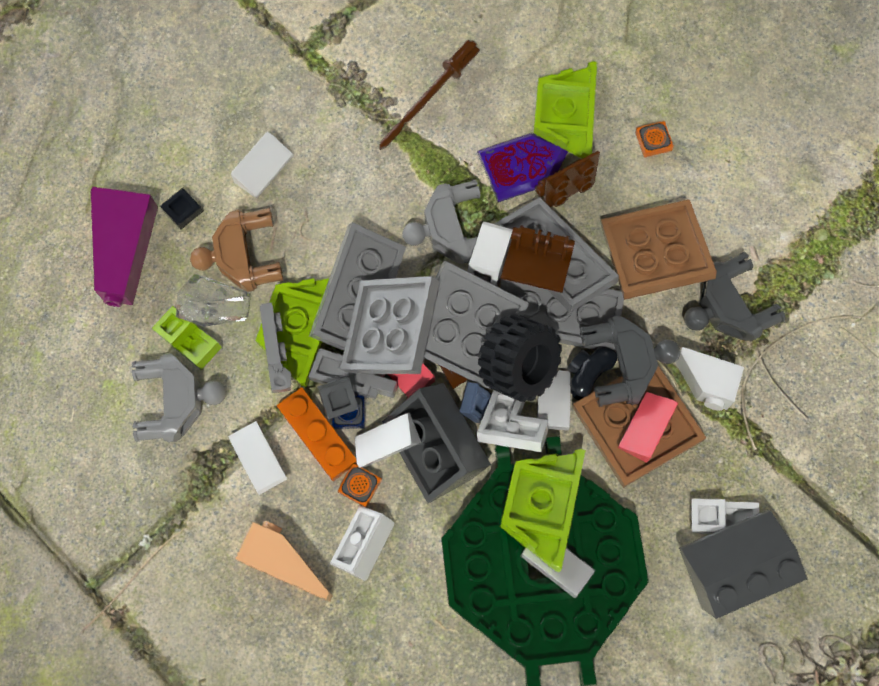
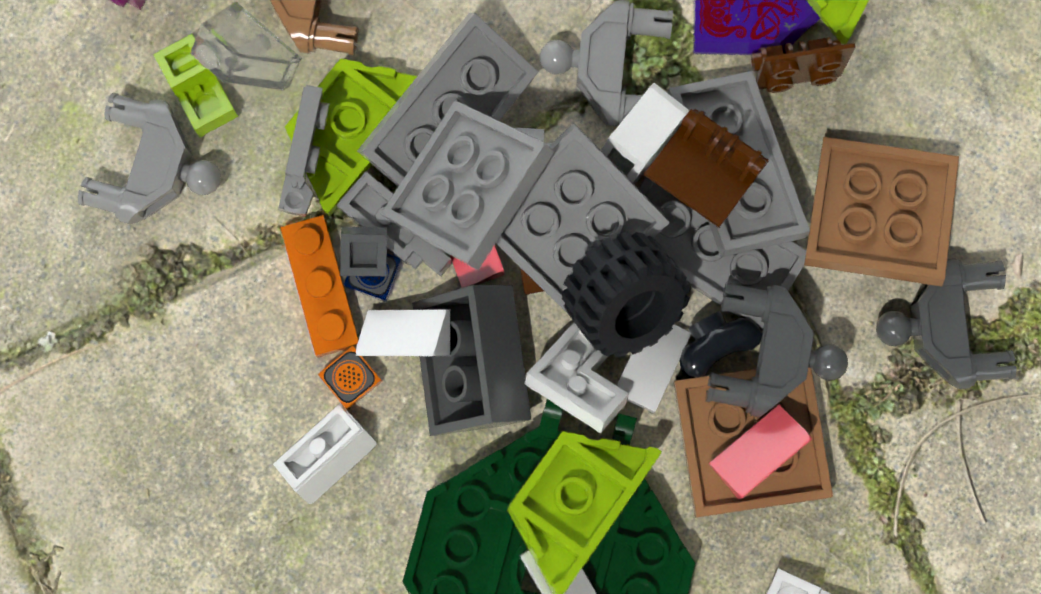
camera: 20 degrees right, 10 degrees up
(257, 458) = (230, 288): white slope -> none
(274, 555) = (208, 432): light nougat slope -> none
(475, 402) = (544, 327): sand blue tile -> none
(654, 139) = (951, 45): orange tile -> none
(710, 378) = (875, 419): white slope -> none

